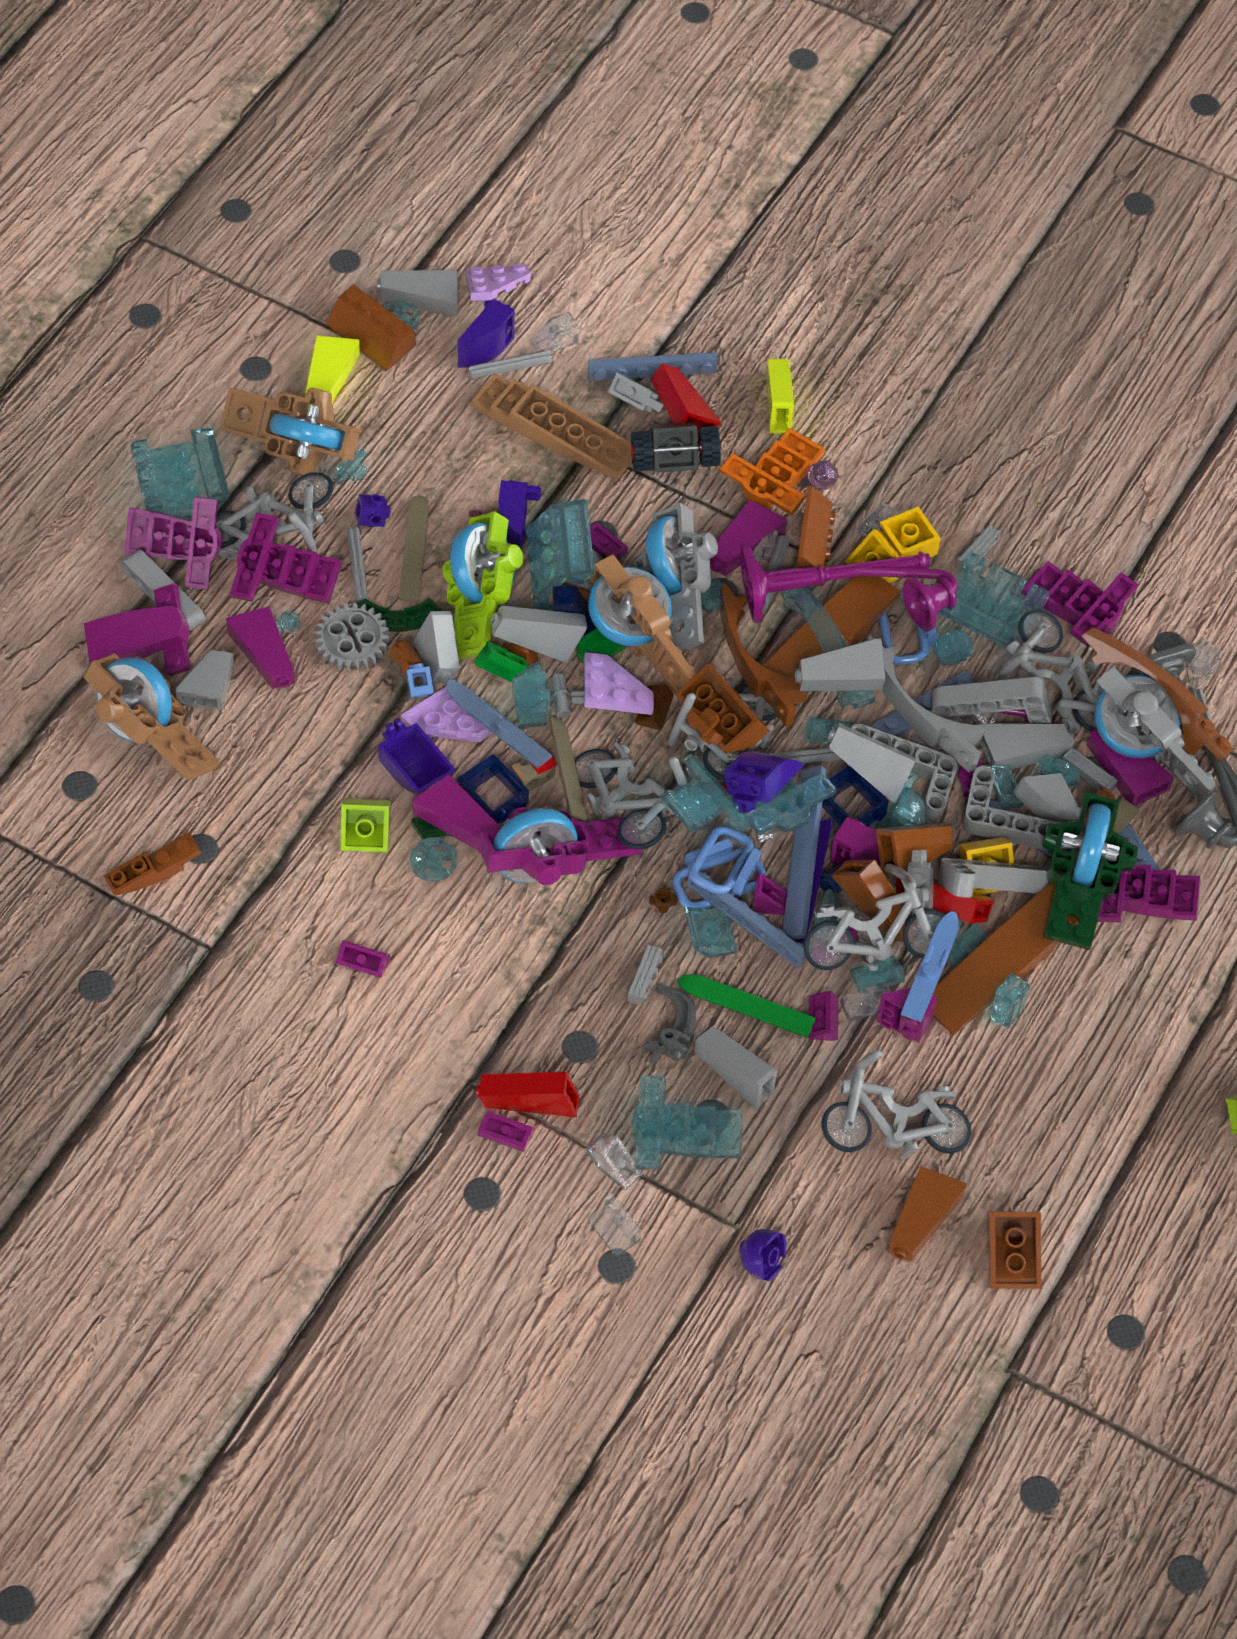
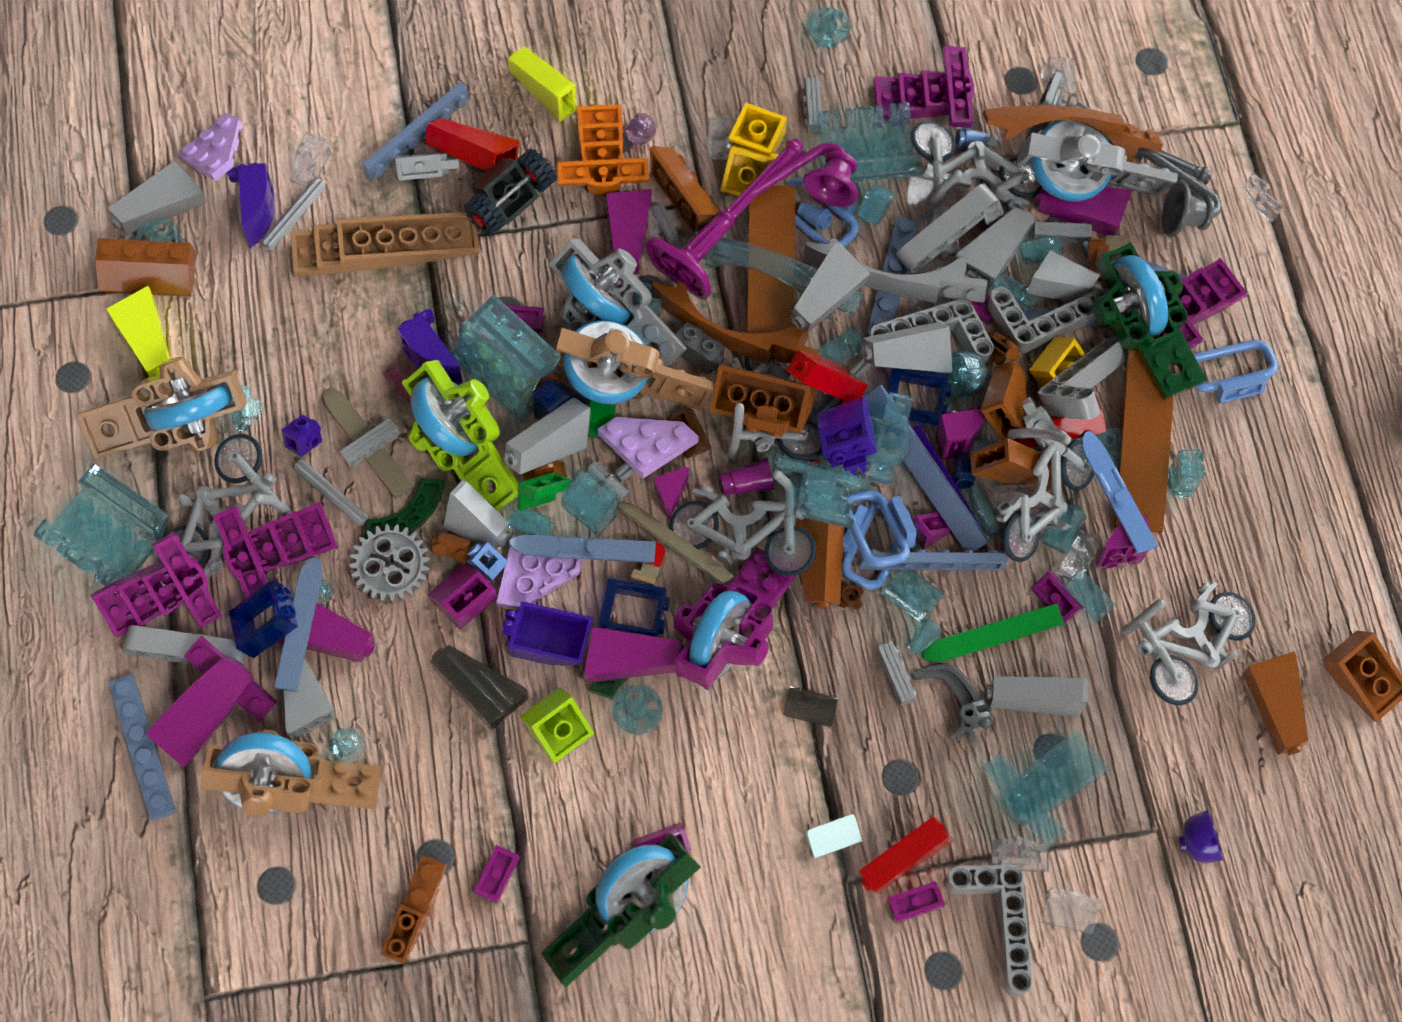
camera: 40 degrees left, 10 degrees up
(74, 636) = (142, 748): none -> sand blue plate
(209, 729) = (347, 745): none -> clear light blue piece
(228, 605) = (253, 640): none -> clear blue window
(230, 887) = (497, 874): none -> magenta plate
(249, 627) = (297, 640): none -> sand blue piece
(307, 964) = (627, 916): none -> dark green piece
(336, 763) = (480, 687): none -> clear smoke slope
(381, 695) = (463, 595): none -> magenta slope
(414, 548) = (369, 443): none -> light grey piece
(477, 682) = (531, 522): none -> clear light blue piece
(490, 1043) = (833, 836): none -> light aqua slope
(559, 950) = (810, 706): none -> clear smoke slope
(560, 1192) = (1006, 916): none -> light grey beam
(602, 732) = (670, 488): none -> magenta slope
(657, 763) = (748, 478): none -> magenta plant
(662, 858) = (823, 578): none -> dark orange slope
(692, 964) = (924, 636): none -> clear light blue cone
(717, 650) = (701, 349): none -> dark grey brick
(778, 854) = (905, 485): none -> clear panel
(783, 726) = (826, 376): none -> red slope
(845, 1029) = (1089, 595): none -> clear light blue plate
(900, 626) = (816, 216): none -> medium blue cone
(952, 814) = (1002, 348): none -> dark orange piece
(1047, 503) = (828, 27): none -> clear light blue piece
(1082, 651) = (966, 136): none -> medium blue cone
(1125, 979) = (1242, 385): none -> medium blue bar

